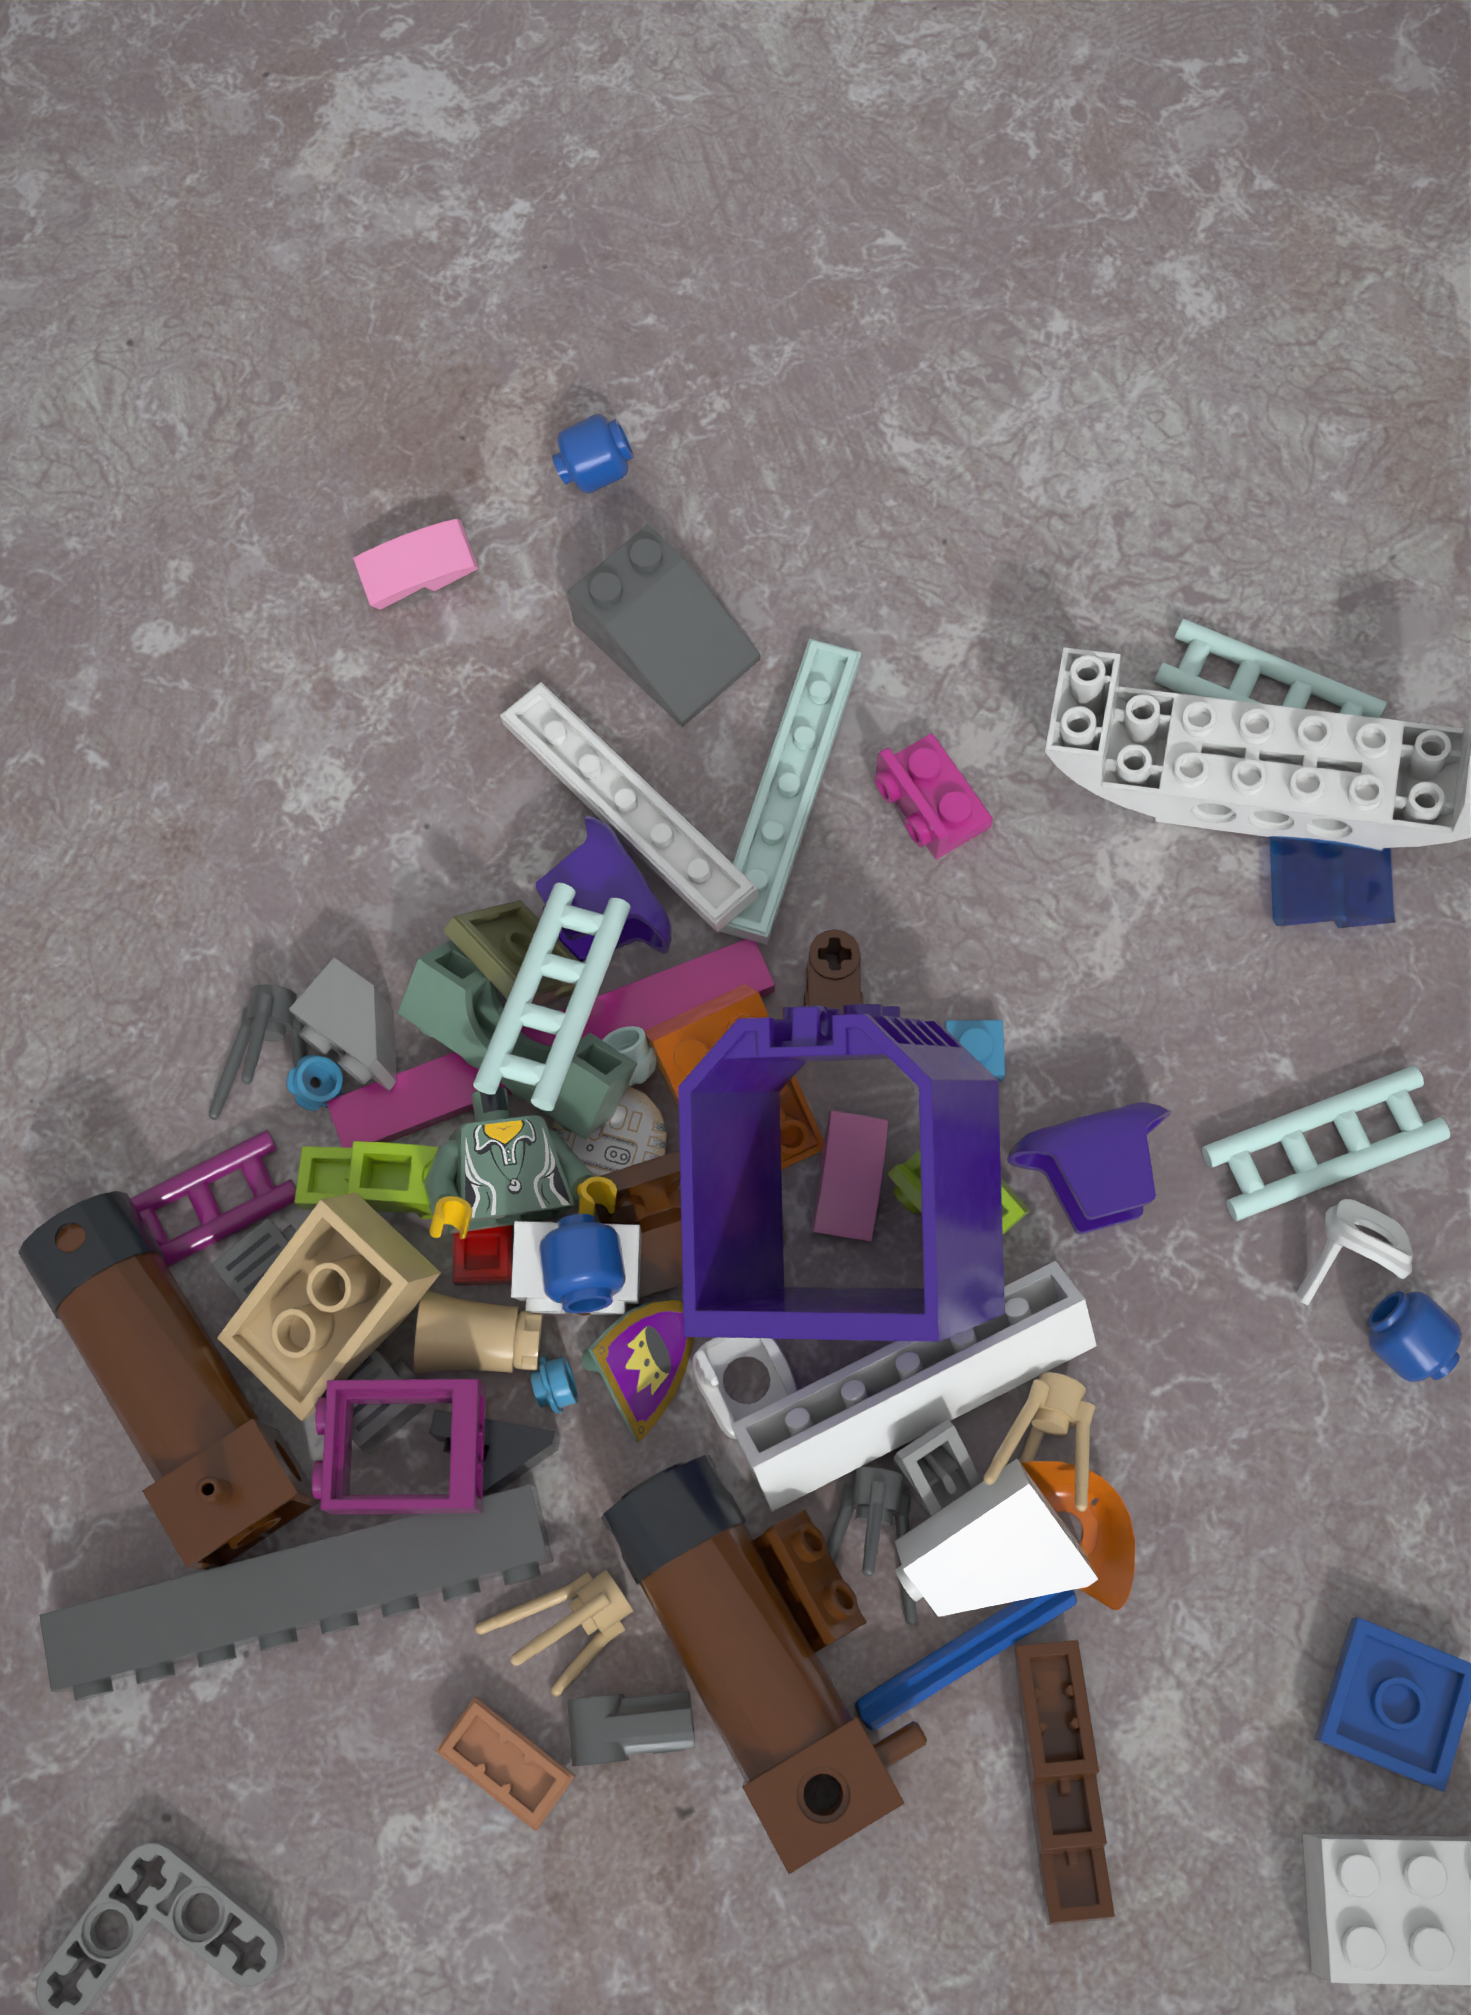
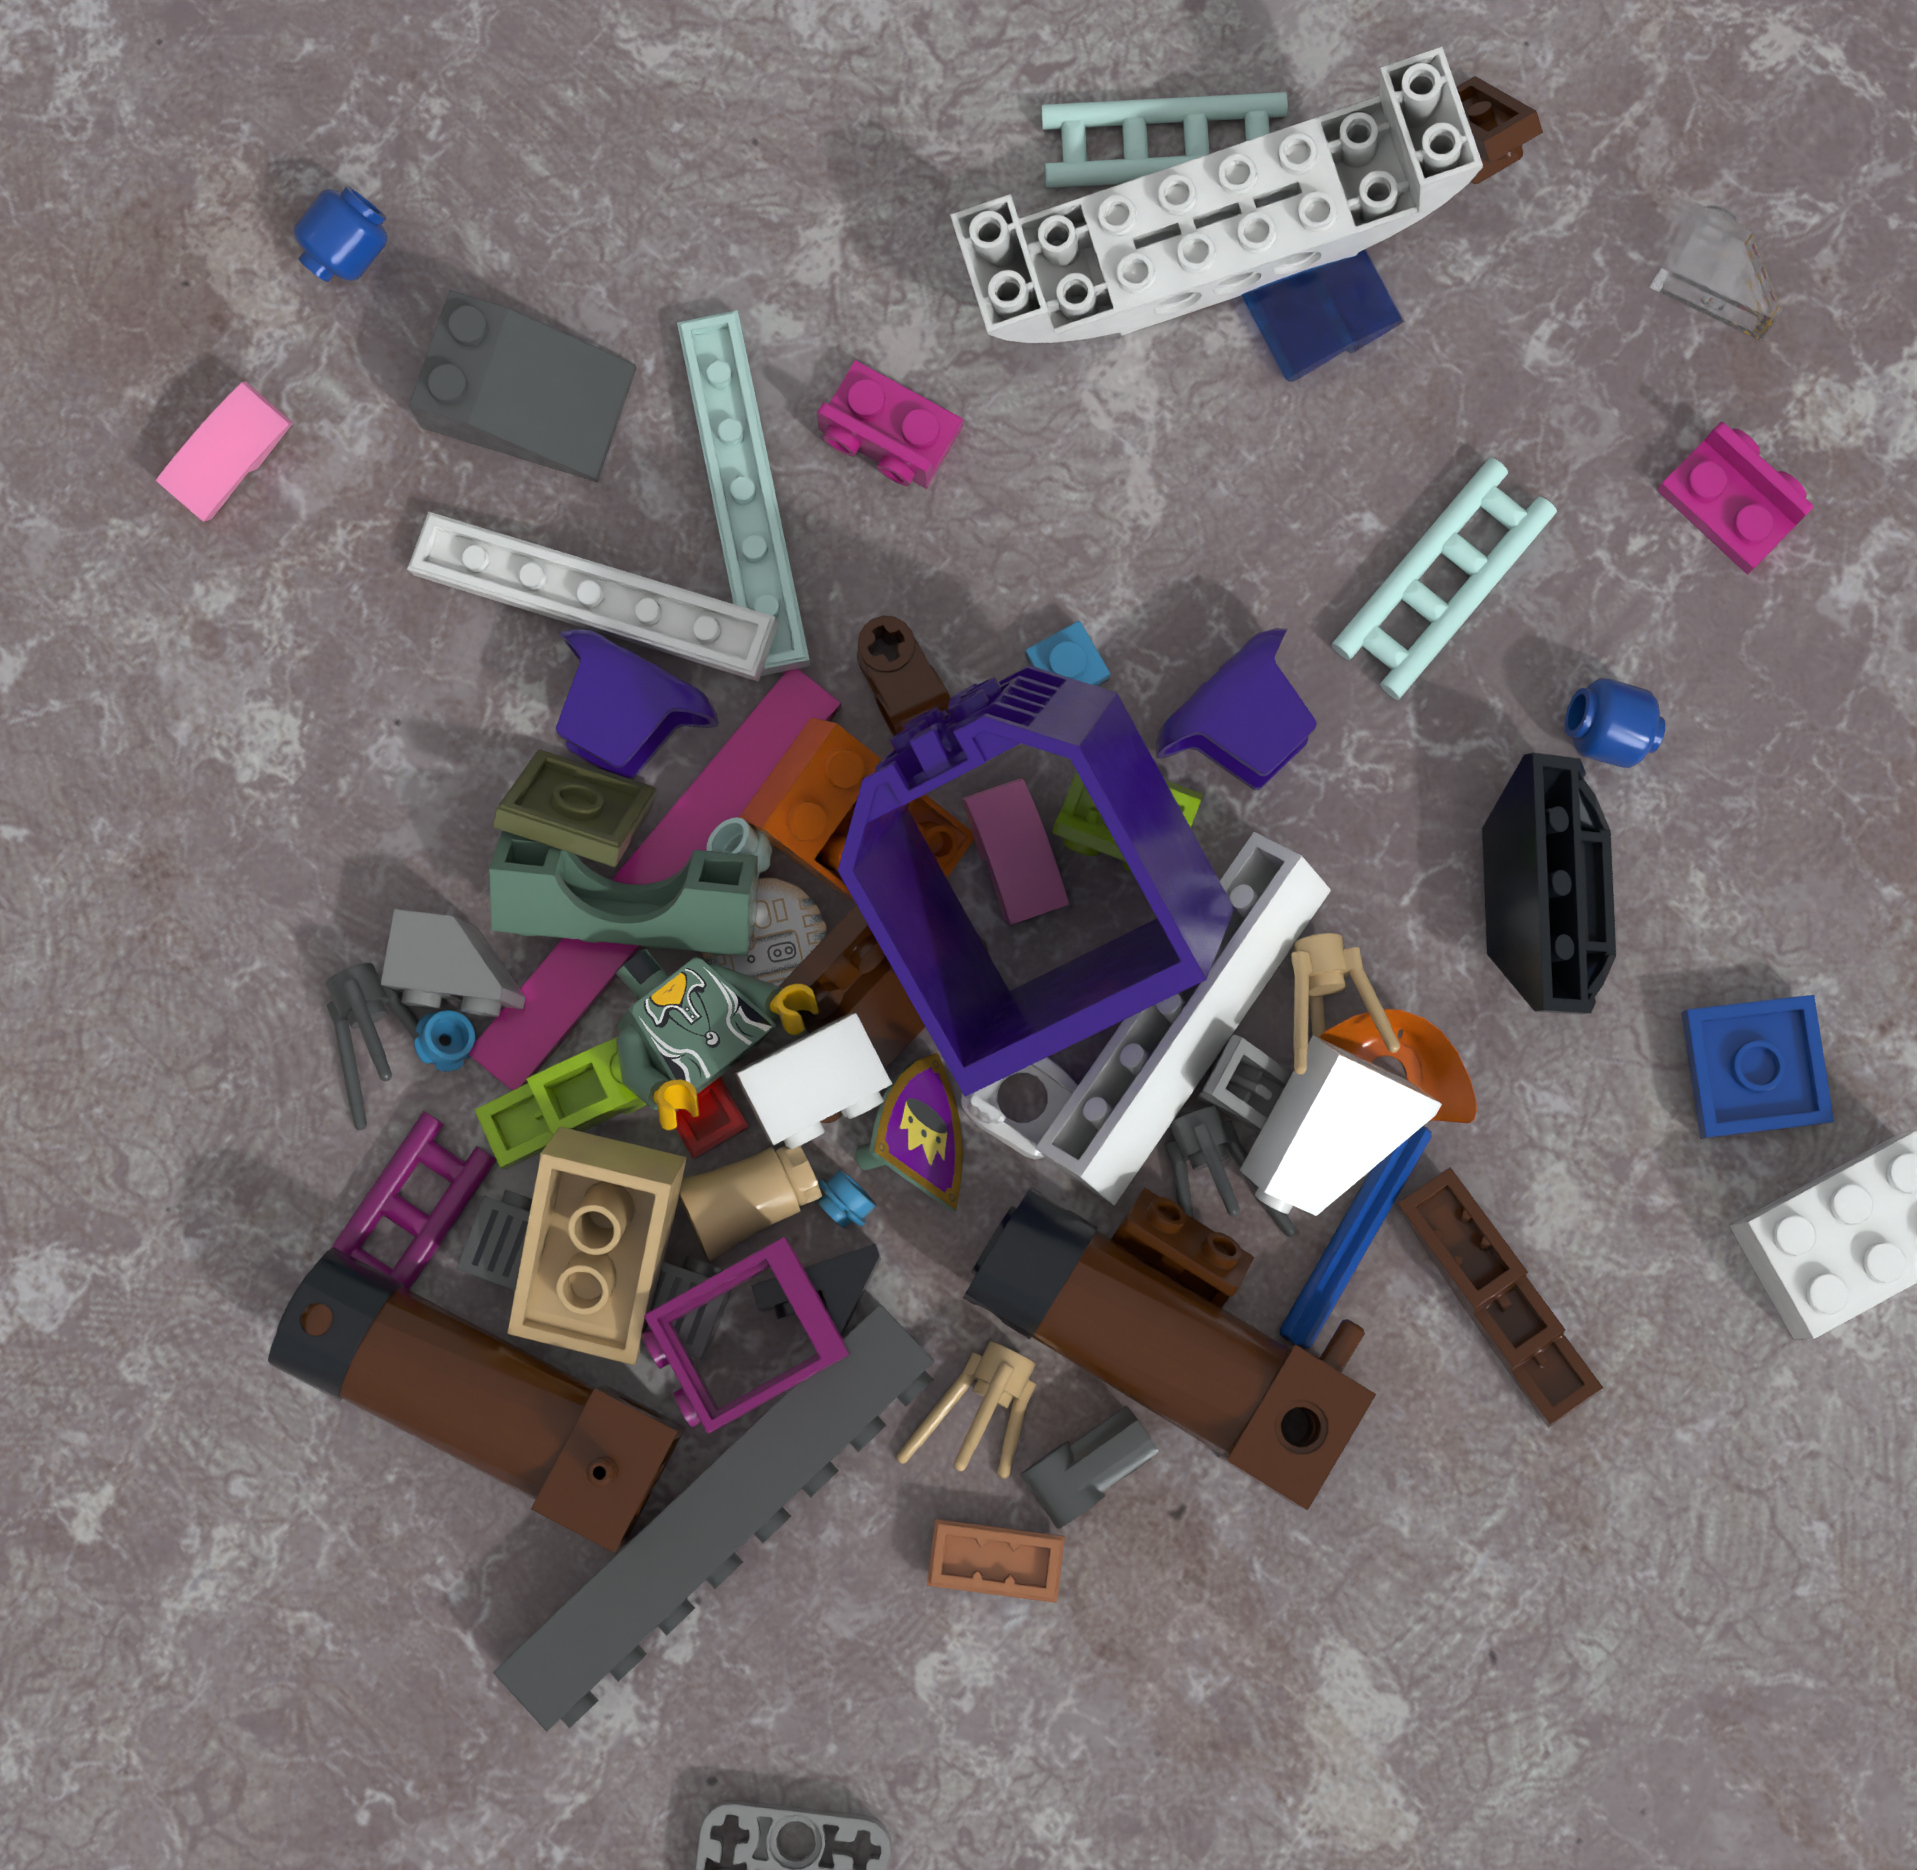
camera: 30 degrees left, 10 degrees up
(566, 1026) = (675, 858): light aqua bar -> none
(582, 1264) = (827, 1079): blue head -> none
(1289, 1443) = (1550, 886): none -> black wedge
(1341, 1231) = (1507, 662): white piece -> none

